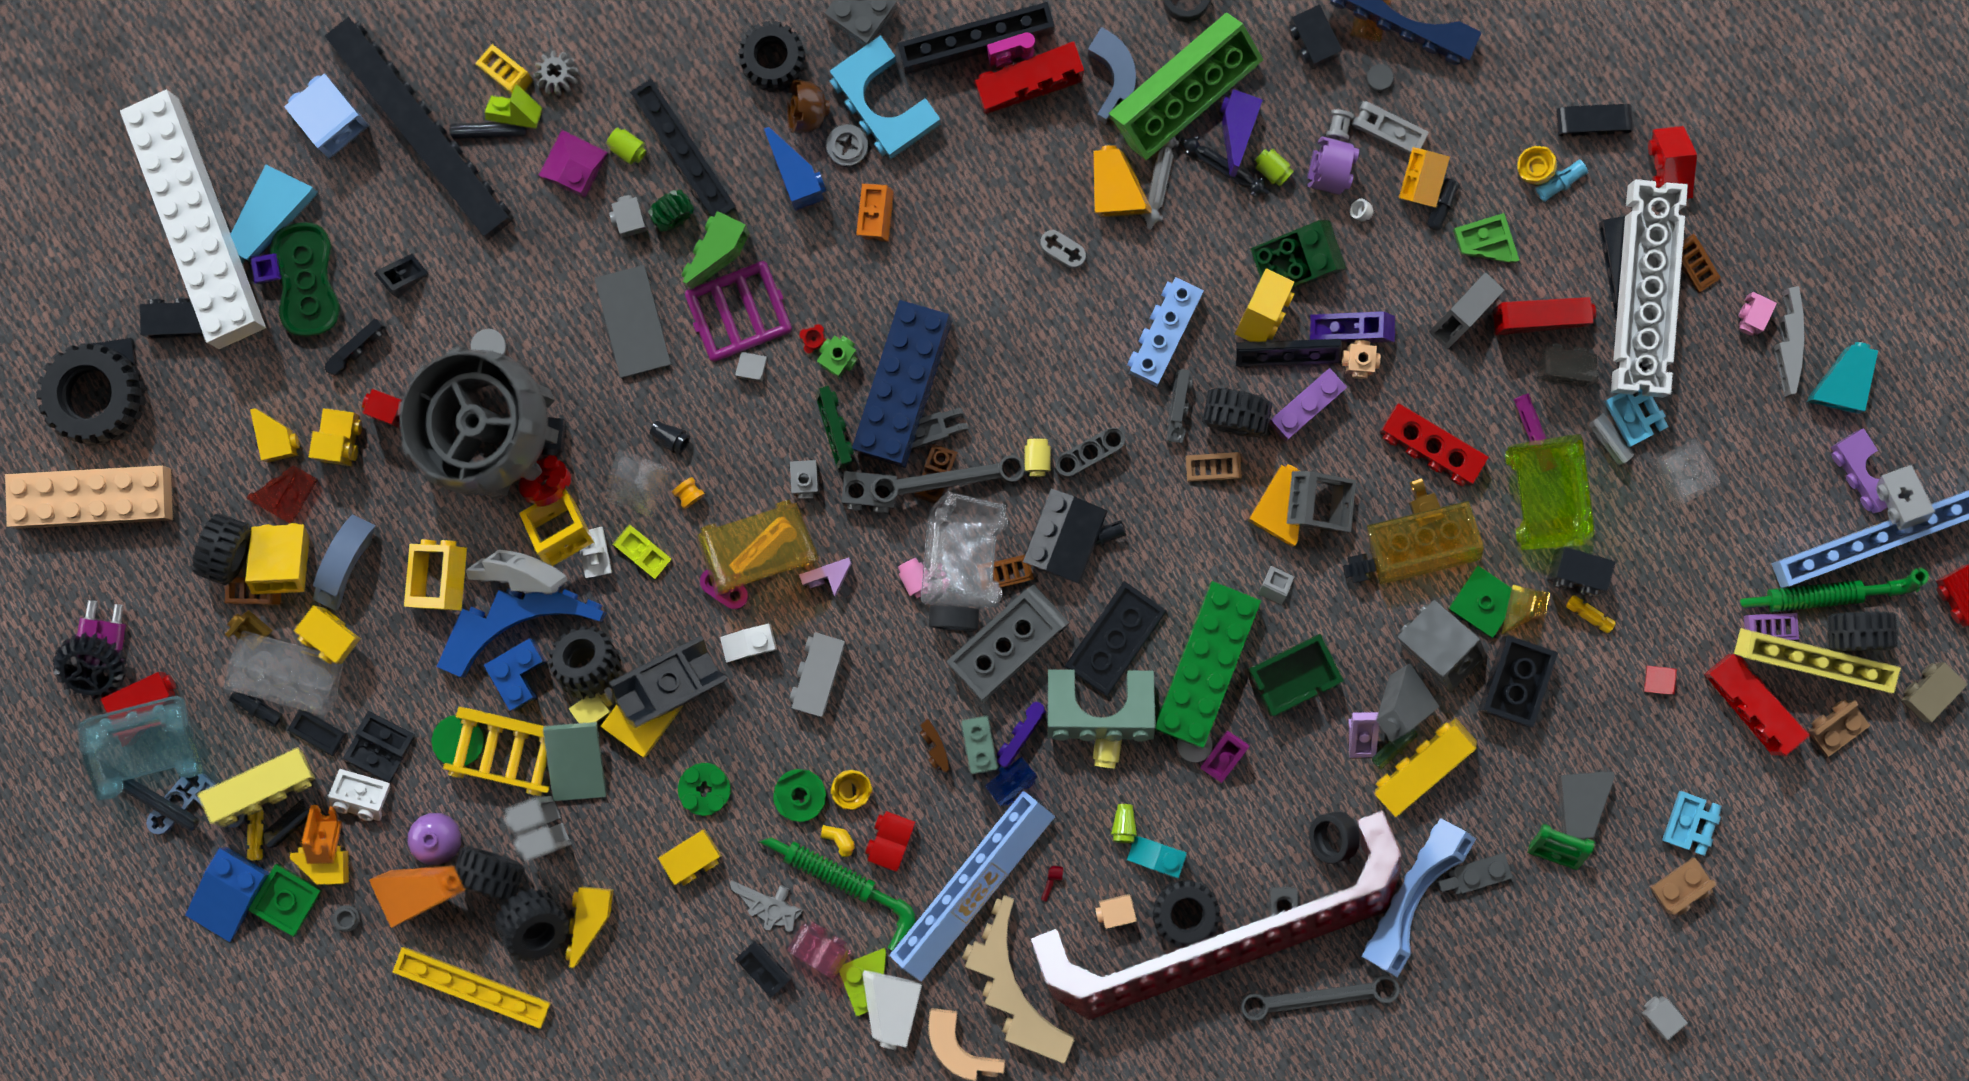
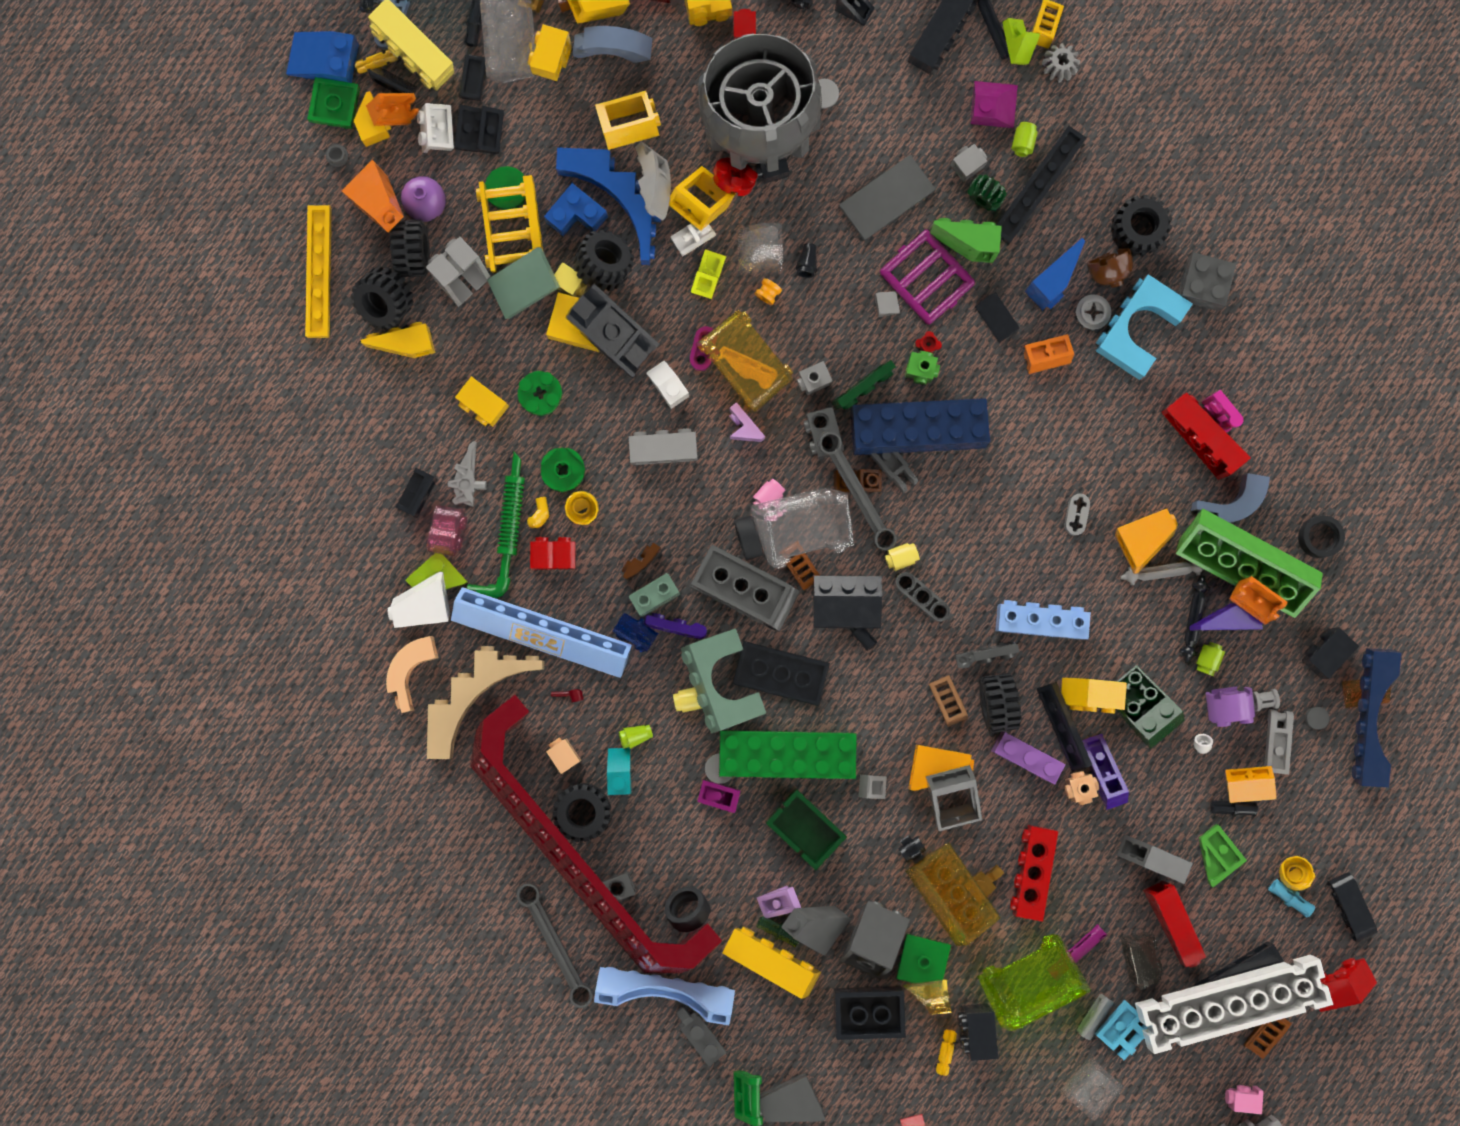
camera: 65 degrees right, 0 degrees up
(813, 252) = (997, 317): none -> black slope
(973, 37) = (1218, 376): black brick -> none
(1229, 93) = (1257, 600): none -> orange hinge

